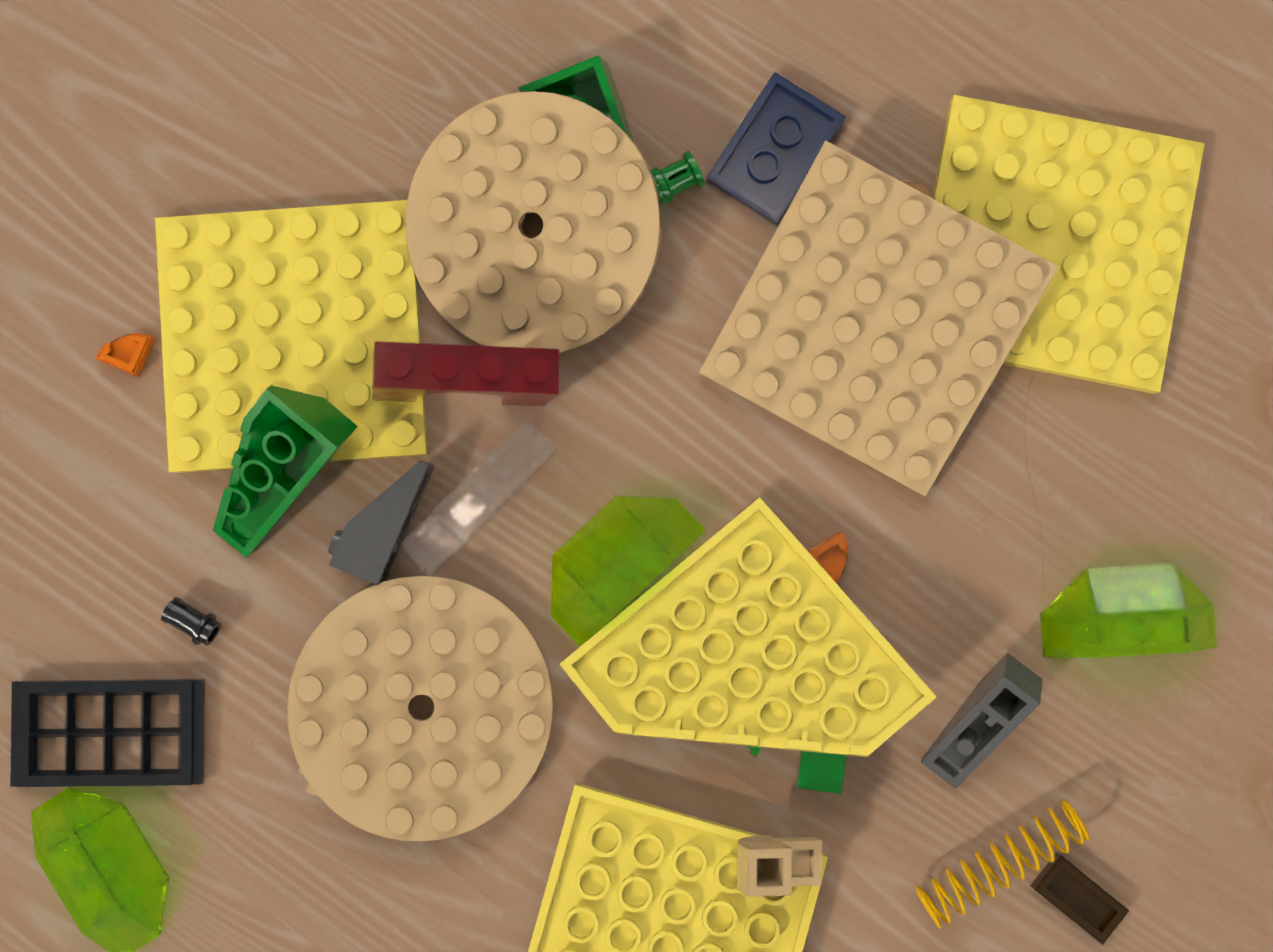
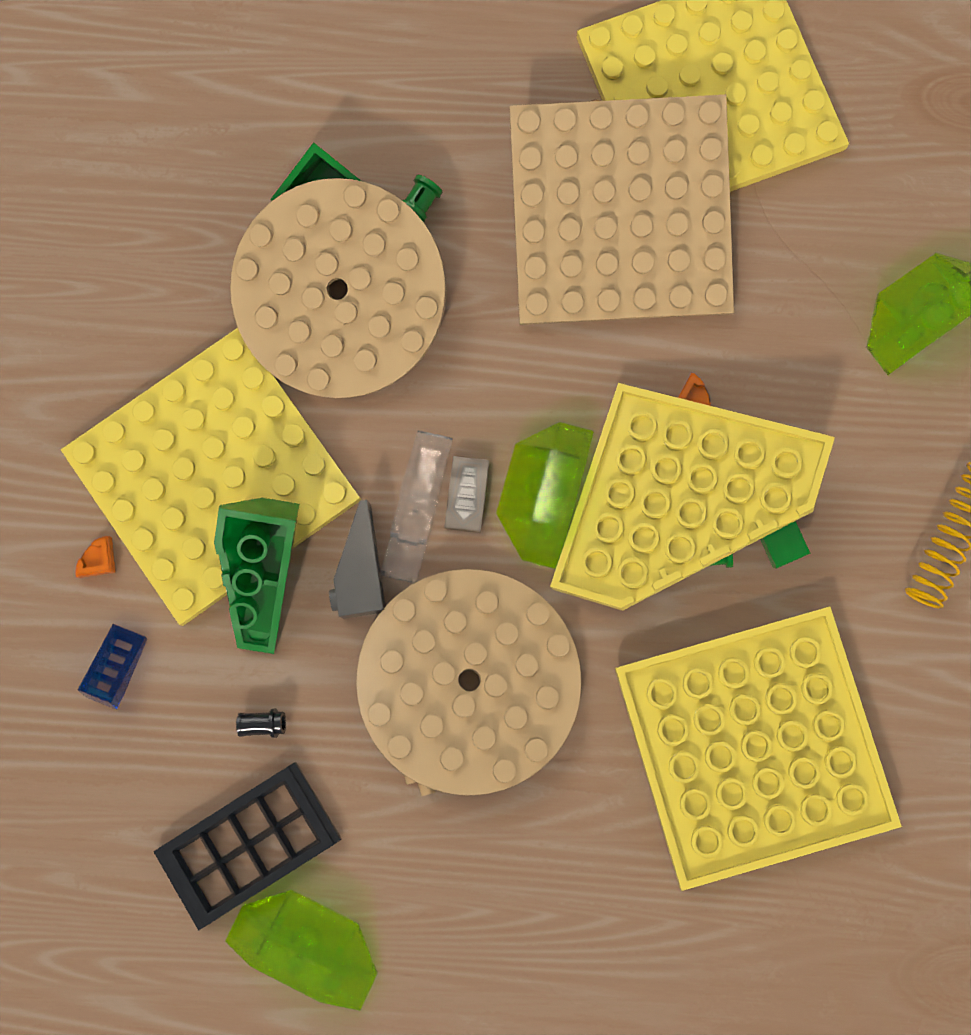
camera: 25 degrees left, 5 degrees down
(76, 494) = (101, 661): none -> clear blue slope
(417, 369) = (393, 393): dark red arch -> none
(536, 516) = (466, 494): none -> tile
(774, 148) = (476, 140): dark blue tile -> none
(777, 864) = (799, 628): tan brick -> none
(984, 720) = (877, 442): dark grey slope -> none

